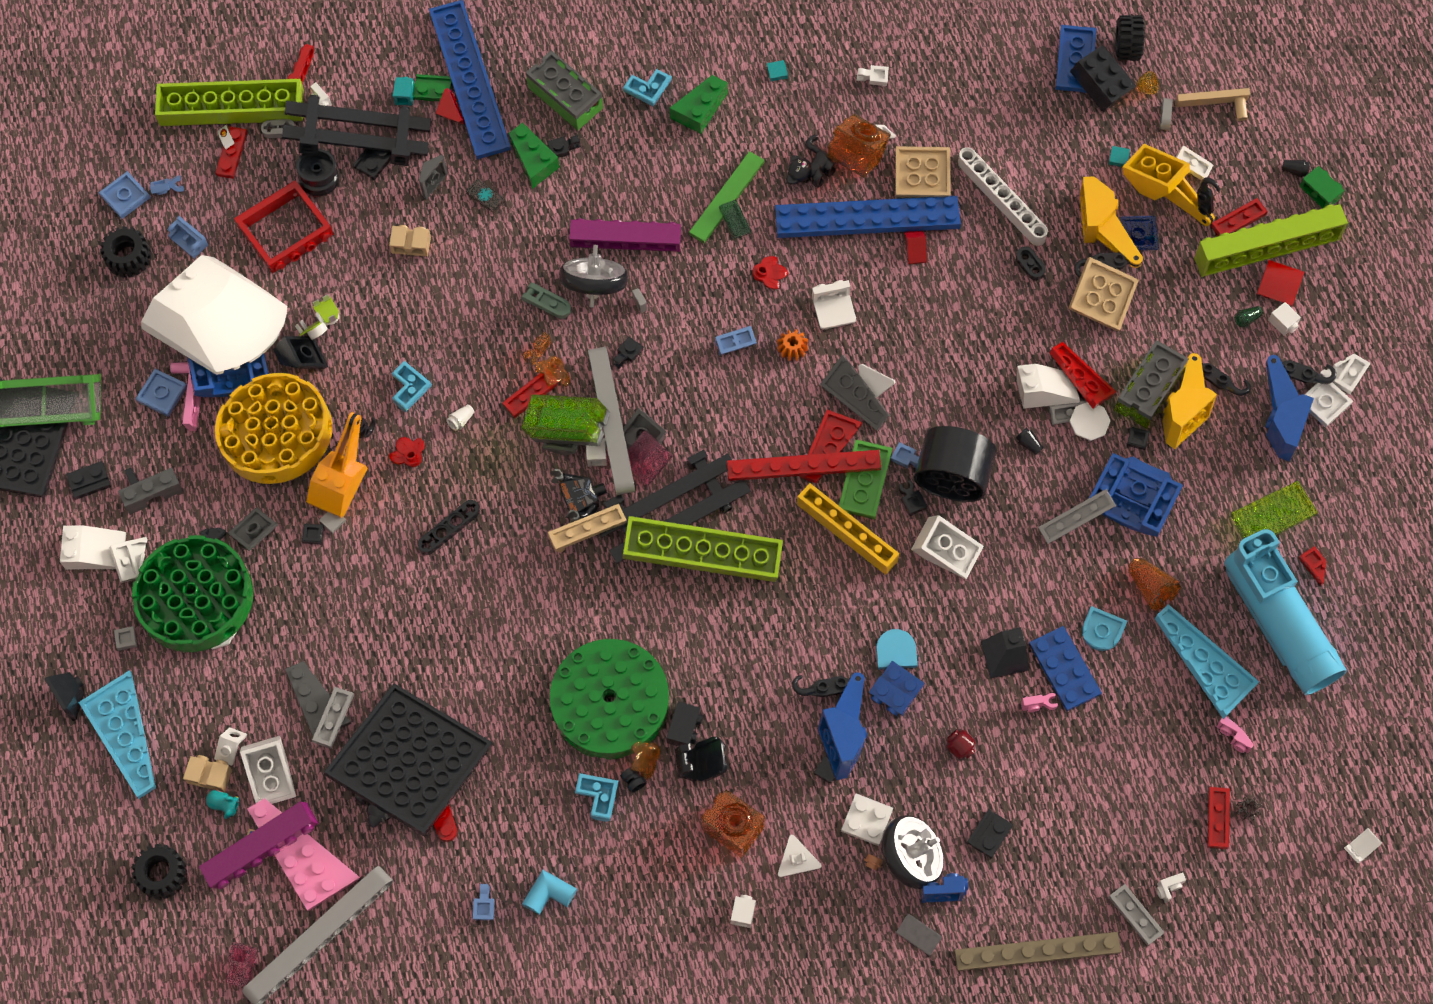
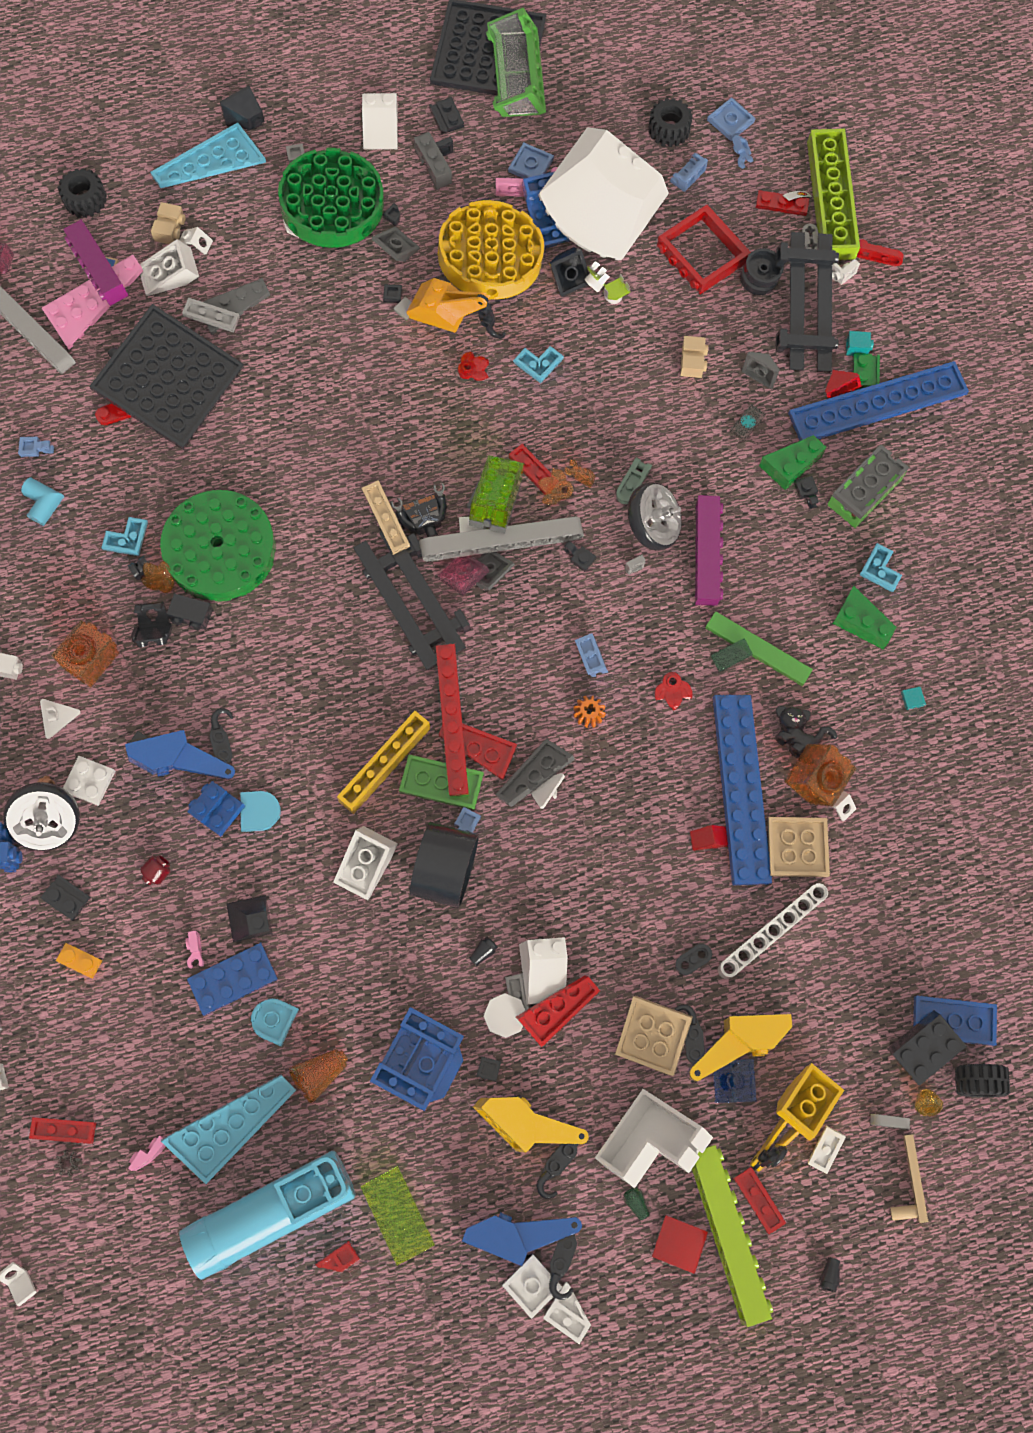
camera: 85 degrees right, 5 degrees up
(128, 558) = (371, 149): white wing -> none
(223, 802) = (141, 237): teal animal -> none
(372, 162) = (776, 320): black plate -> none
(446, 525) = (397, 404): black beam -> none
(460, 417) = (507, 408): white cone -> none
(702, 549) = (360, 622): lime brick -> none
(833, 304) = (635, 752): white bracket -> none
(876, 75) = (914, 800): white plate -> none
(912, 500) = (415, 829): black plate -> none
(1053, 816) = (79, 960): none -> light orange plate
(1077, 516) = (392, 995): light grey plate -> none
(1119, 156) = (832, 1065): teal tile -> none
(1151, 384) = (546, 1083): dark grey piece -> none
(1187, 295) = (645, 1132): none -> white piece
(1284, 319) = (632, 1245): white brick -> none
(1321, 187) = (804, 1304): green brick -> none

